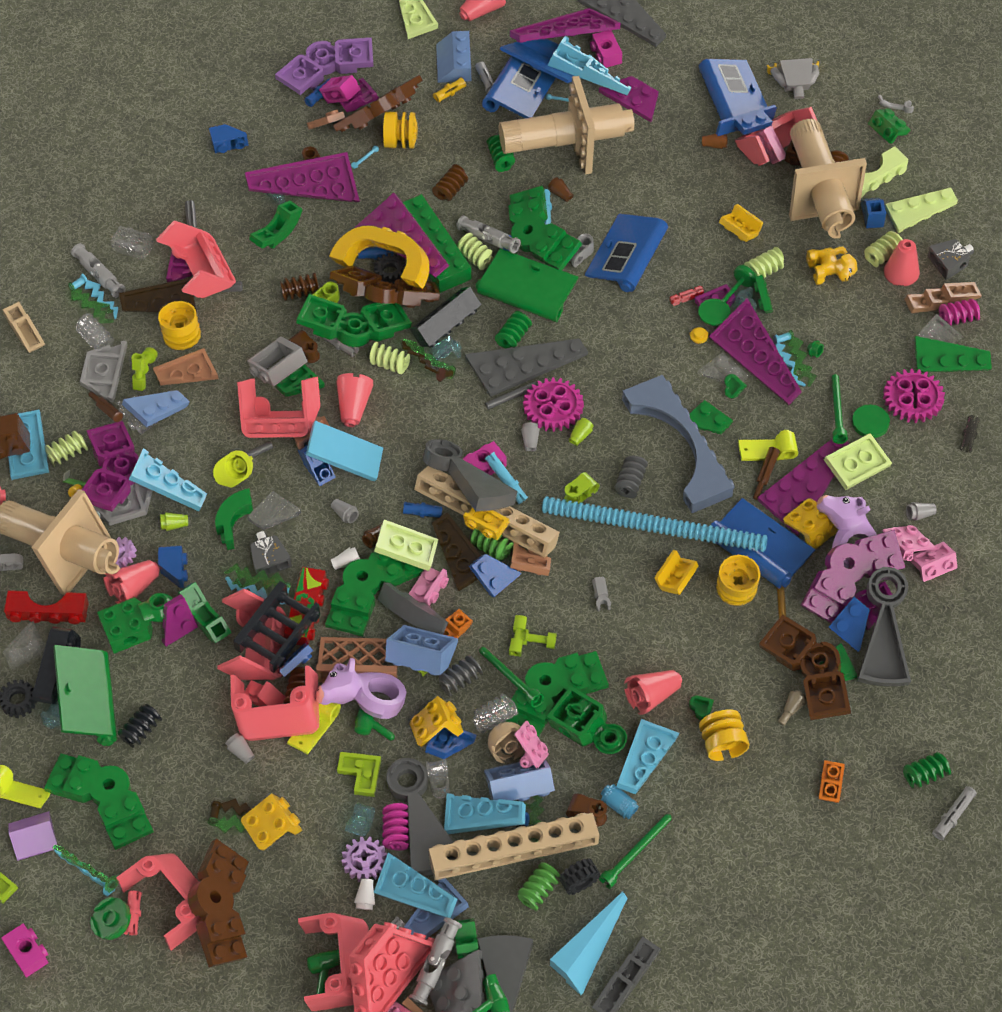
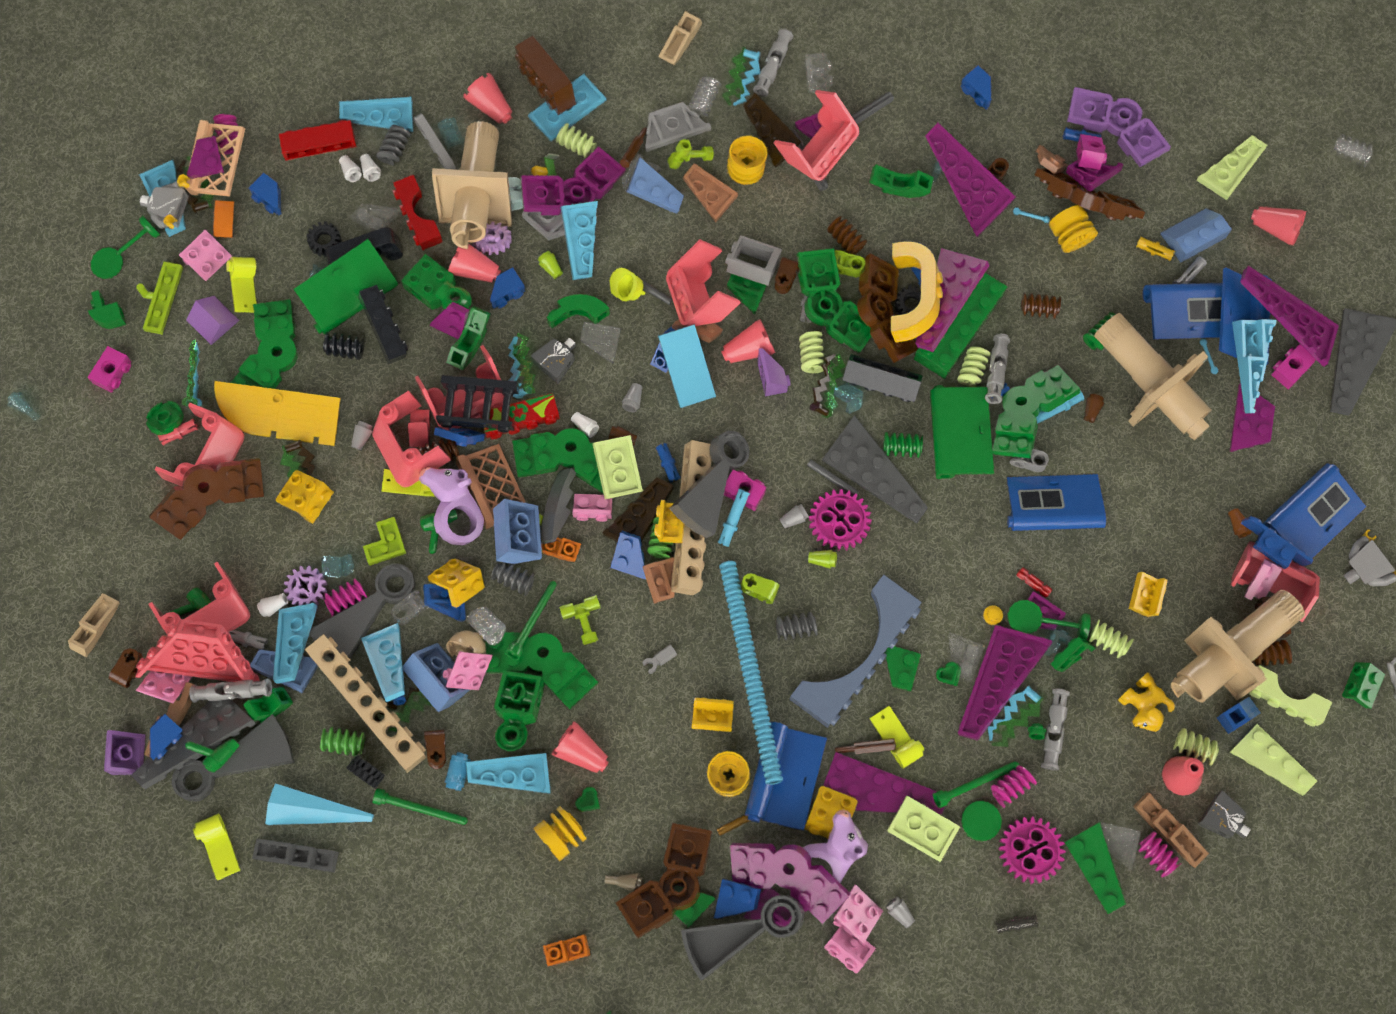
camera: 60 degrees right, 15 degrees up
(144, 678) = (381, 322): none -> black brick
(177, 802) = (288, 413): none -> yellow door
(389, 395) = (772, 374): none -> medium lavender slope
(811, 329) = (1057, 716): none -> light grey piece
(853, 384) = (1012, 784): none -> dark pink piece

